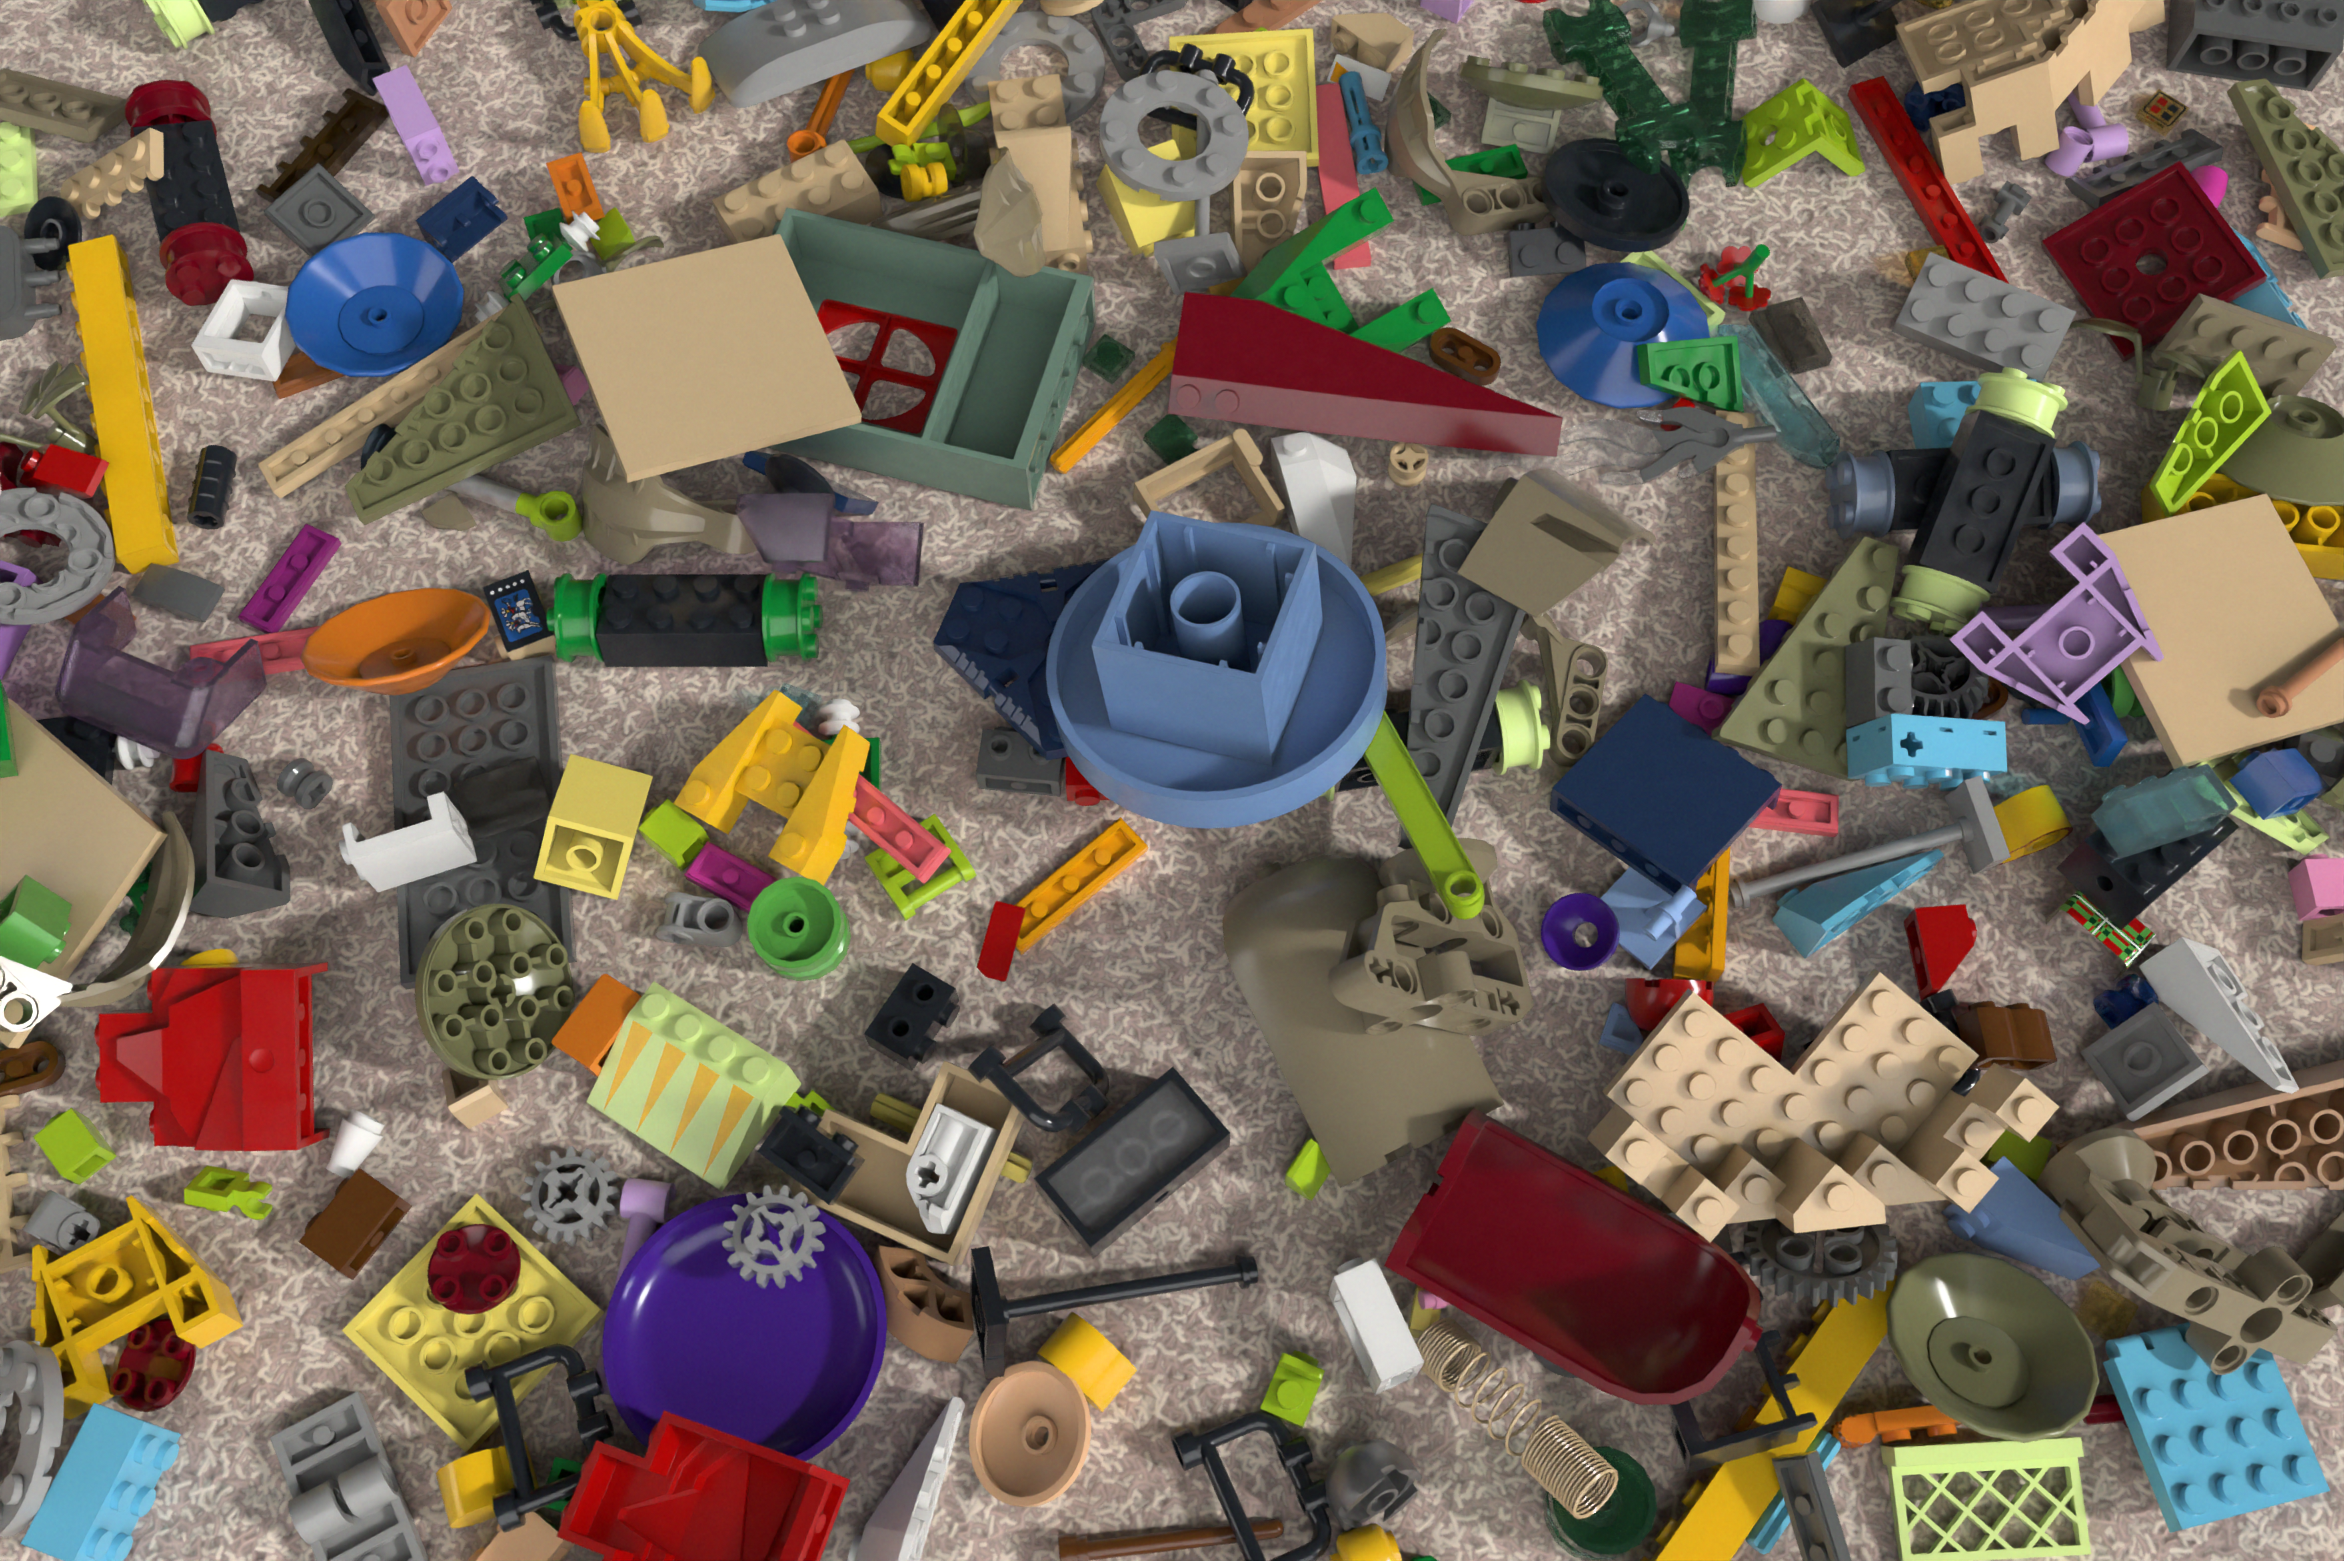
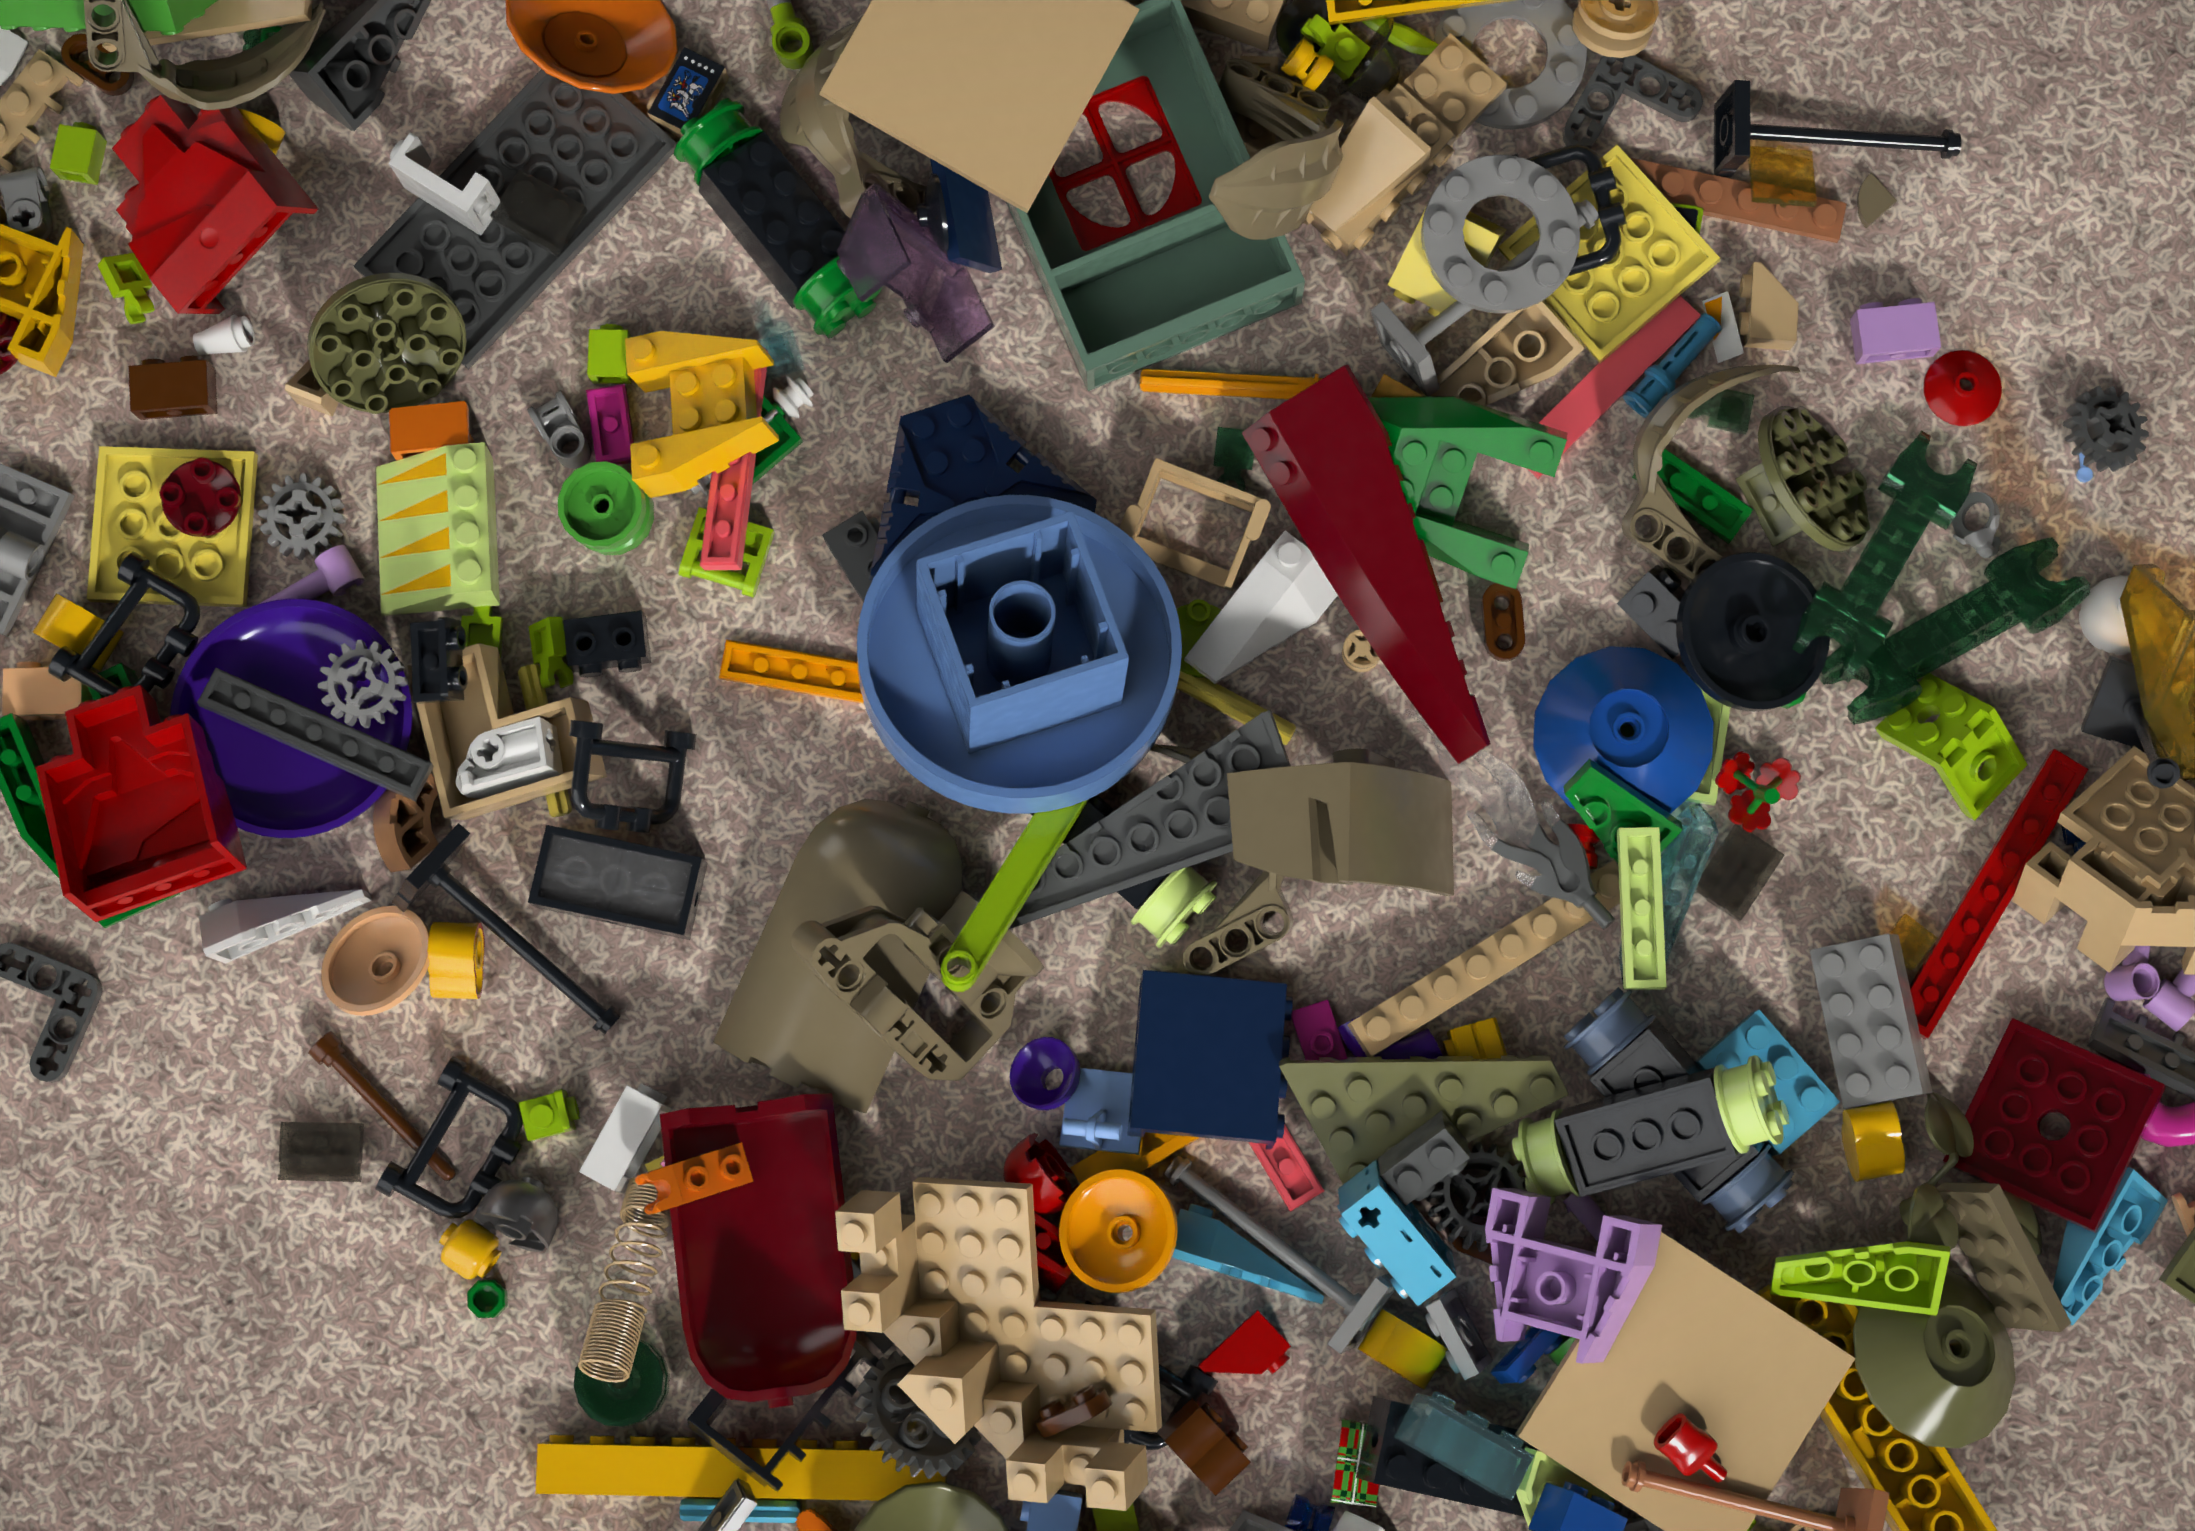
camera: 55 degrees right, 15 degrees up
(304, 783) = (442, 59): dark grey wheel -> none
(592, 826) = (567, 295): light yellow slope -> none
(778, 1320) = (315, 734): none -> dark grey tile
(873, 1071) = (548, 648): none -> lime plate
(1000, 940) = (715, 656): red sticker -> none
(1108, 359) = (1273, 341): clear green plate -> none
(1307, 1170) = (709, 1009): lime slope -> none
(1468, 1277) = (697, 1177): none -> orange plate
(1620, 1031) = (993, 1157): light blue tile -> none
(1783, 398) = (1641, 908): none -> yellowish green plate
(1783, 925) = (1095, 1224): none -> light orange dish
(1917, 1107) = (1085, 1405): none -> reddish brown plate
(2011, 199) = (2043, 966): dark grey bar -> none
(2049, 770) = (1465, 1347): none -> light grey plate
(2087, 380) = (1873, 1141): none -> yellow piece
(2273, 648) = (1689, 1448): none -> red piece

